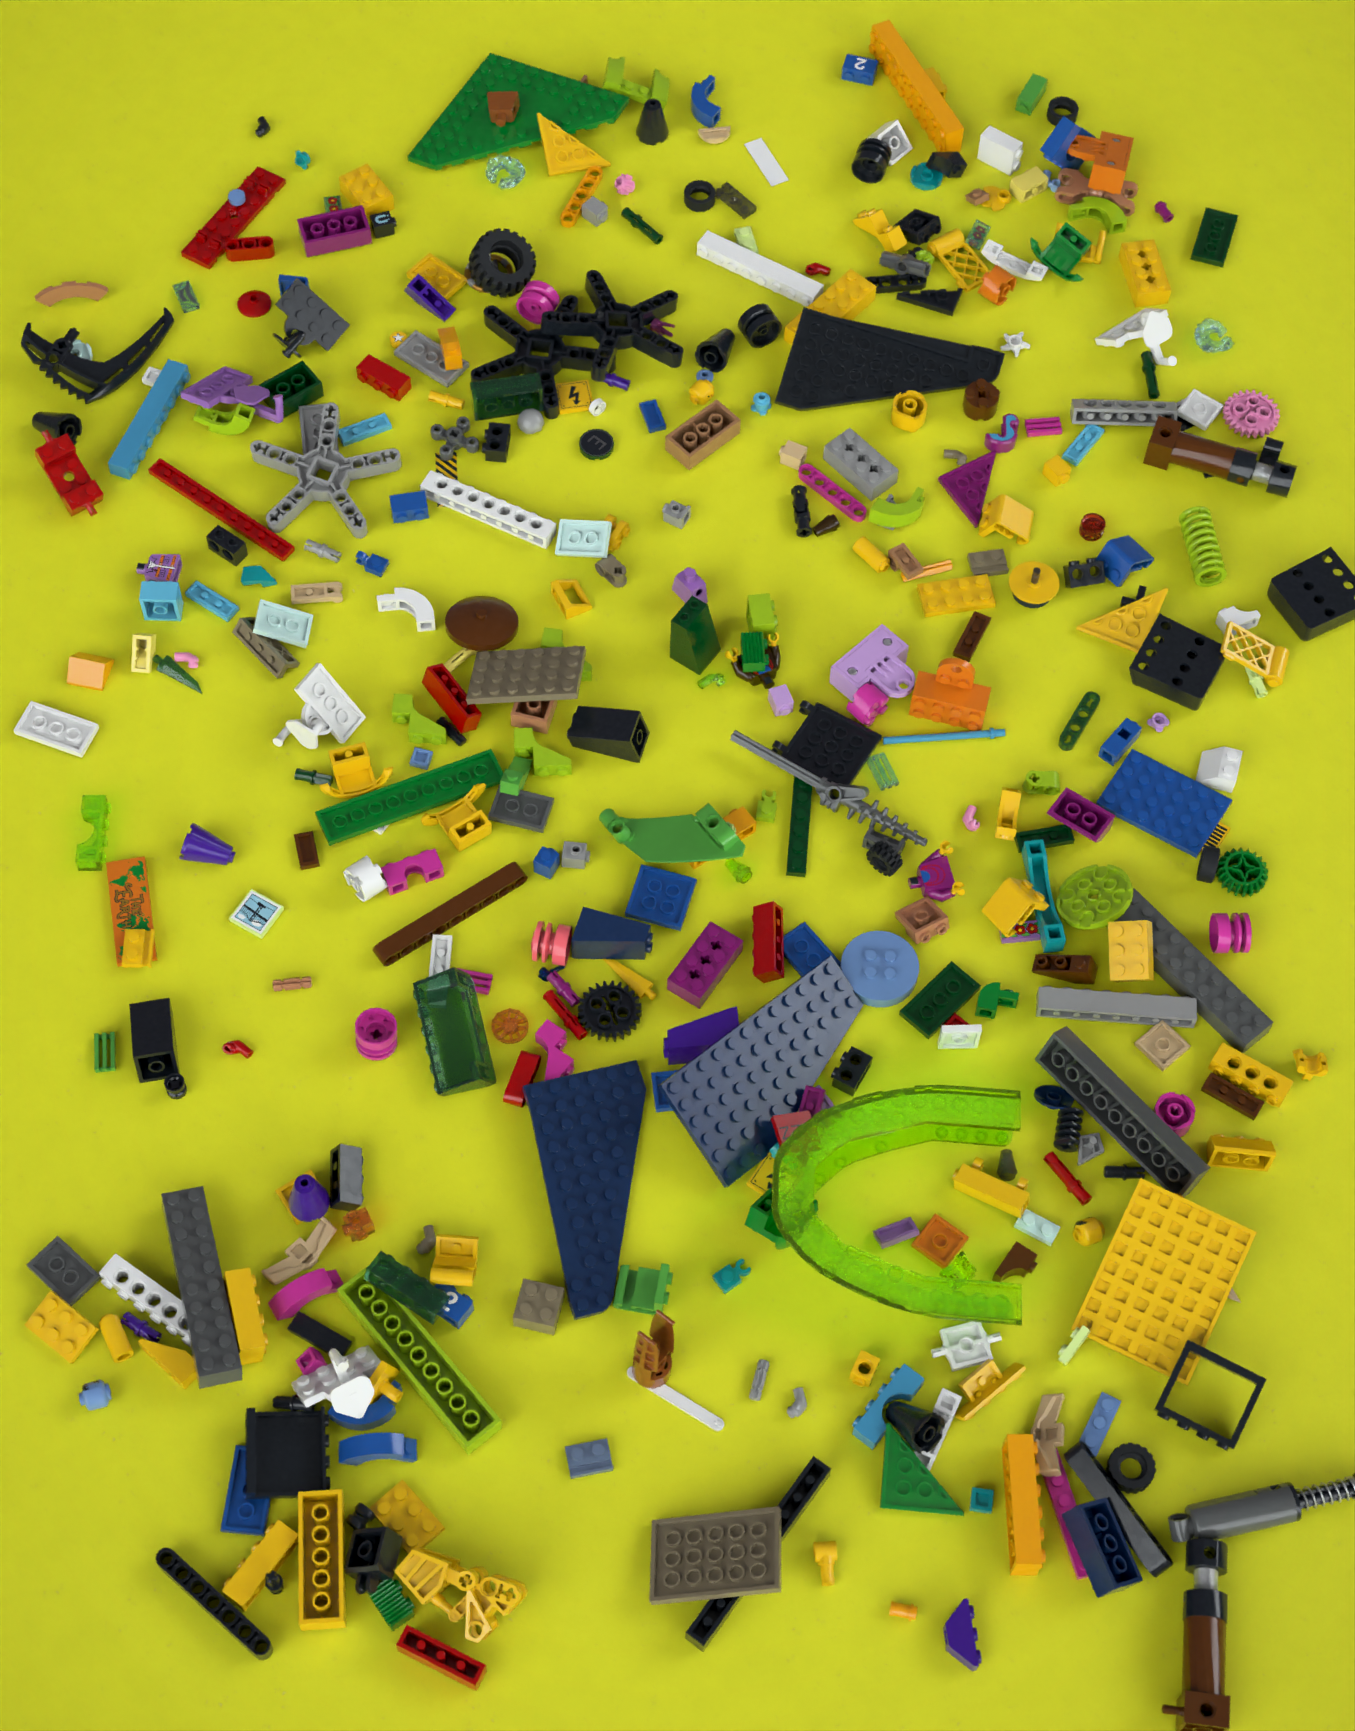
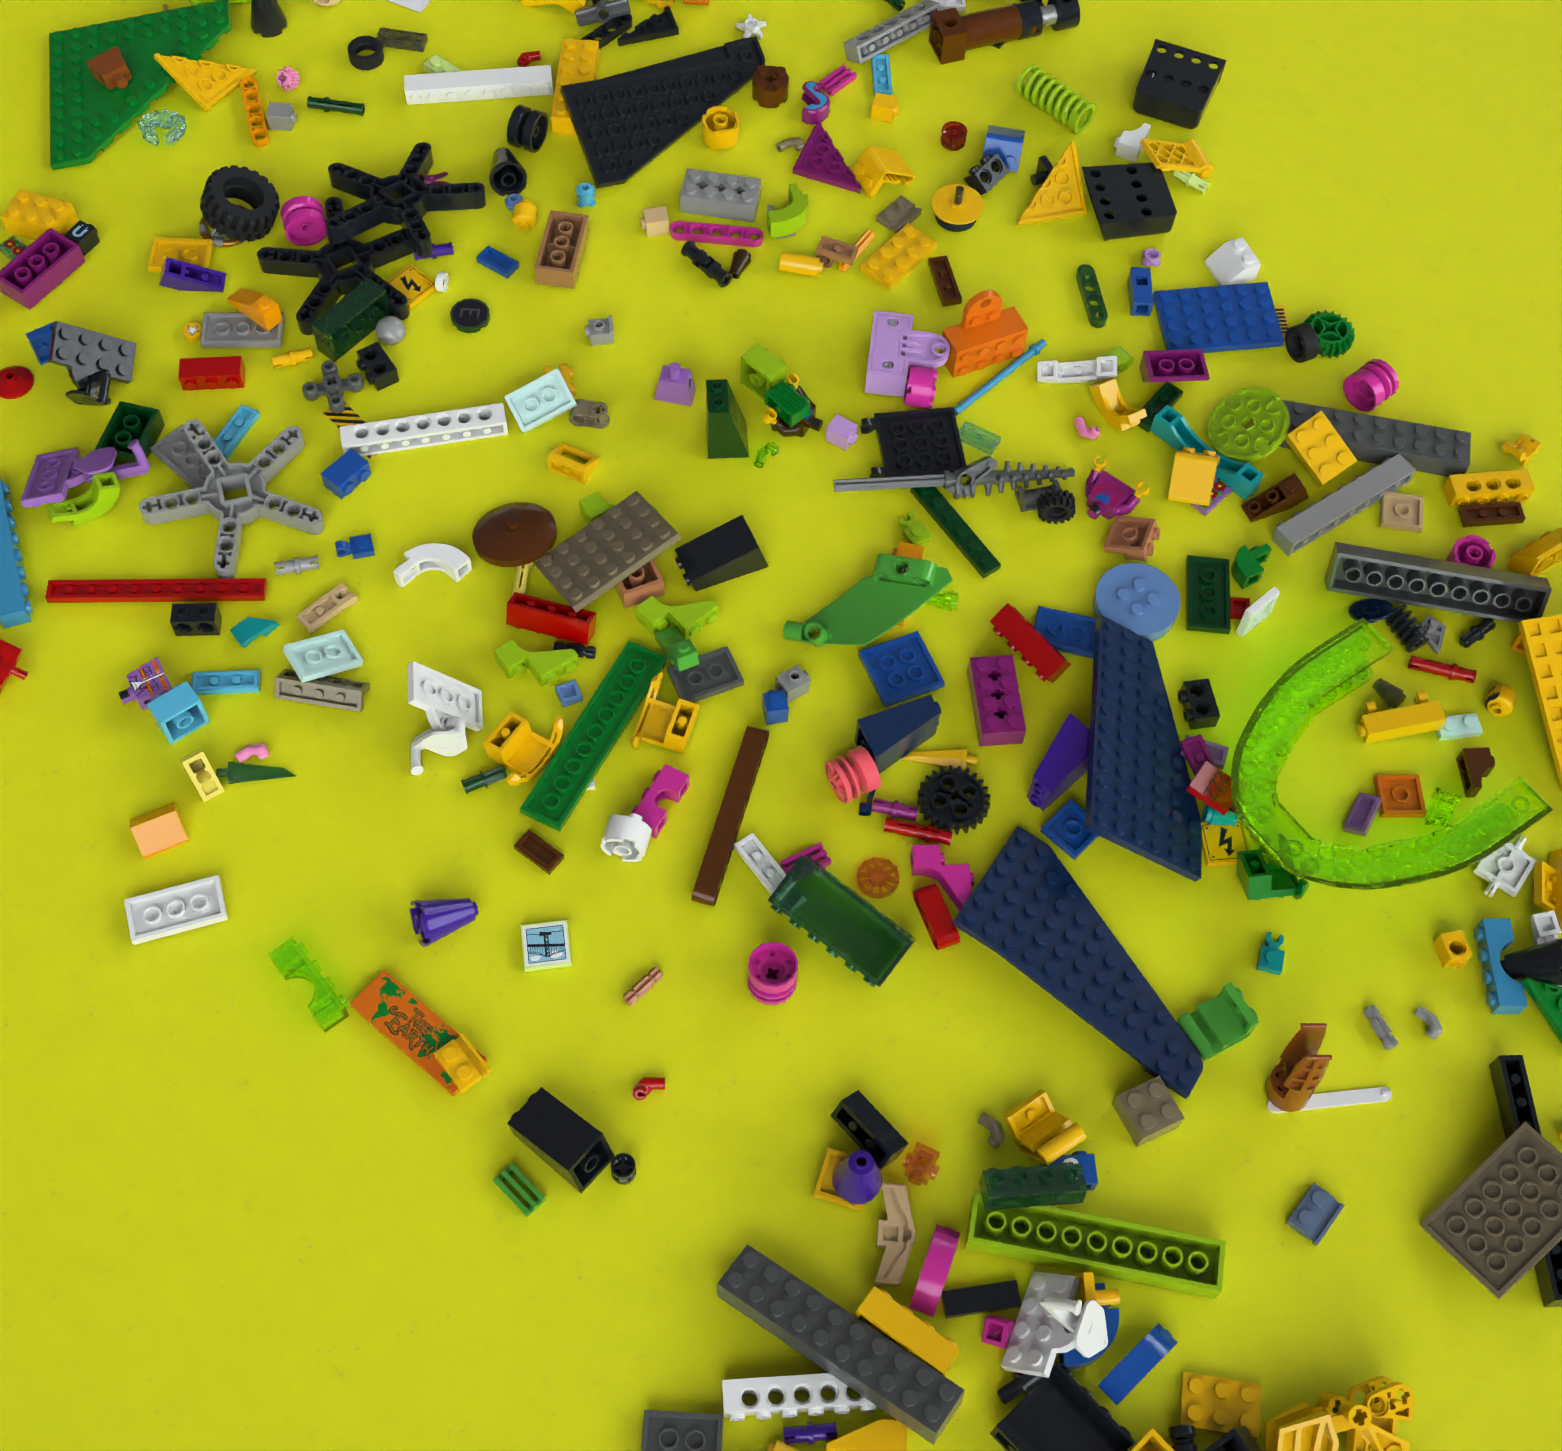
camera: 40 degrees left, 0 degrees up
(1002, 768) = (1077, 371): none -> white slope

